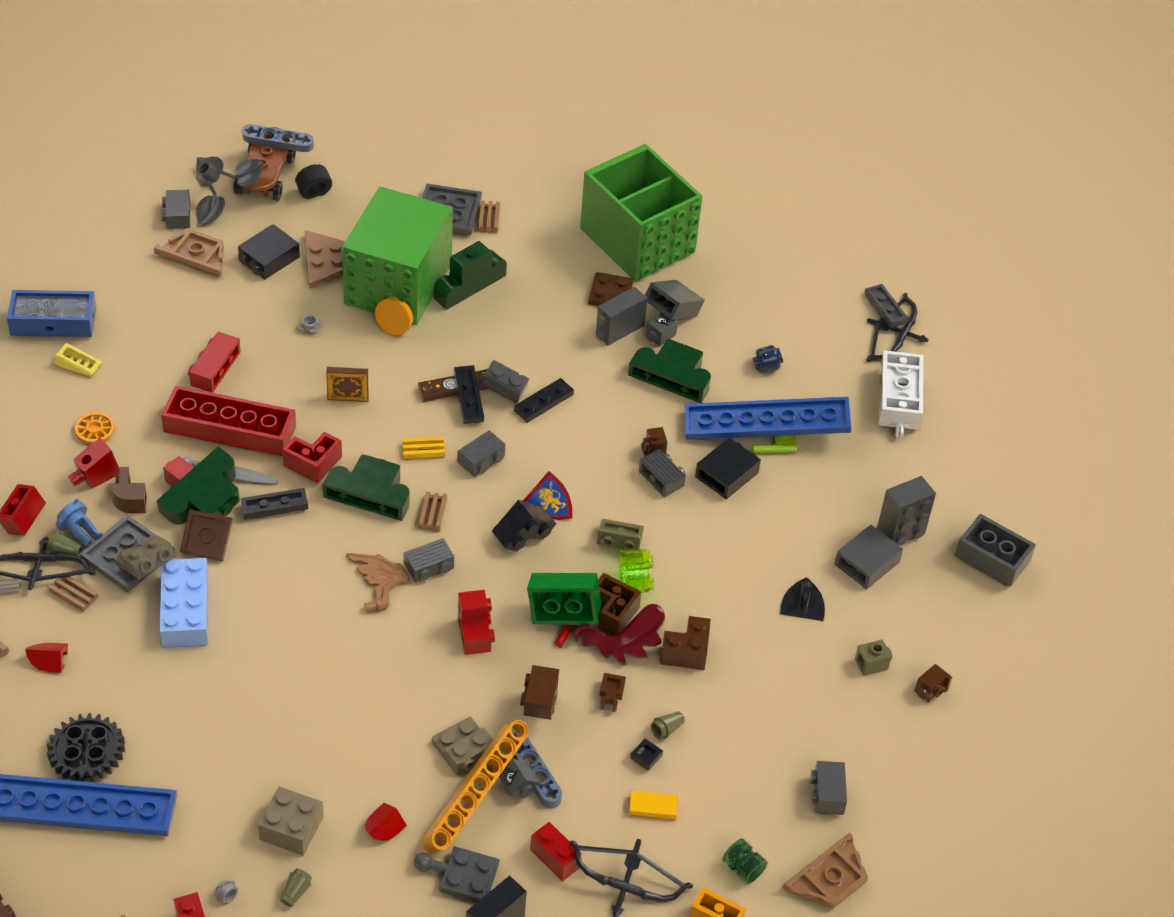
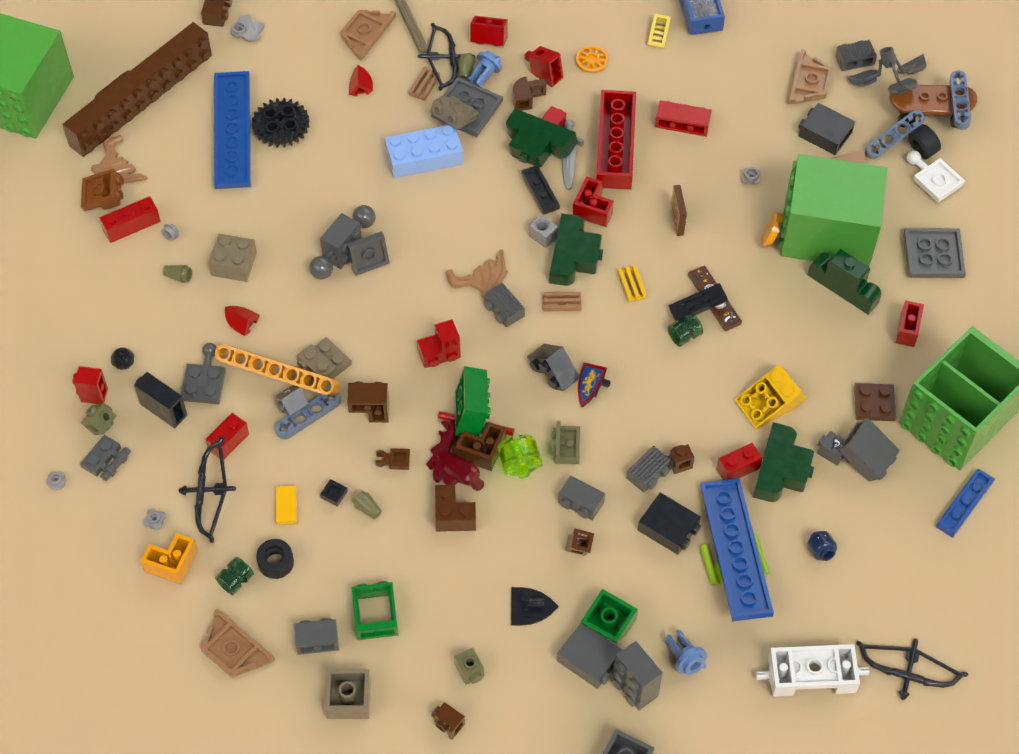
camera: 85 degrees right, 10 degrees up
(206, 535) = (493, 150): reddish brown tile -> none
(304, 697) = (335, 241): none -> dark grey brick
(305, 219) = (893, 132): none -> sand blue beam
(329, 673) = (368, 253): none -> dark grey plate
(335, 509) = (548, 234): none -> light grey brick
(356, 186) = (936, 179): none -> white plate
(481, 453) = (633, 324): dark grey brick -> none
(489, 206) = (938, 285): medium nougat tile -> none
(499, 410) = (683, 330): none -> clear green wheel
(505, 381) = (719, 326): dark grey brick -> none
(533, 241) = (909, 323): none -> red brick
(543, 400) = (715, 366): black plate -> none
(593, 361) = (770, 397): none -> yellow slope
(621, 316) = (831, 407): dark grey brick -> none
(668, 400) = (739, 462): none -> red brick
(688, 533) = (581, 498): none -> dark grey brick
(729, 808) = (270, 548): none -> black tyre
(732, 254) = (965, 503): none -> blue tile
(744, 539) = (579, 542): none -> reddish brown brick
(801, 715) = (374, 629): none -> green window
(832, 528) = (610, 616): none -> green slope
(874, 479) = (690, 658): none -> medium blue piece
(886, 306) = (938, 653): dark grey tile -> none
(901, 765) = (347, 694): none -> dark tan brick

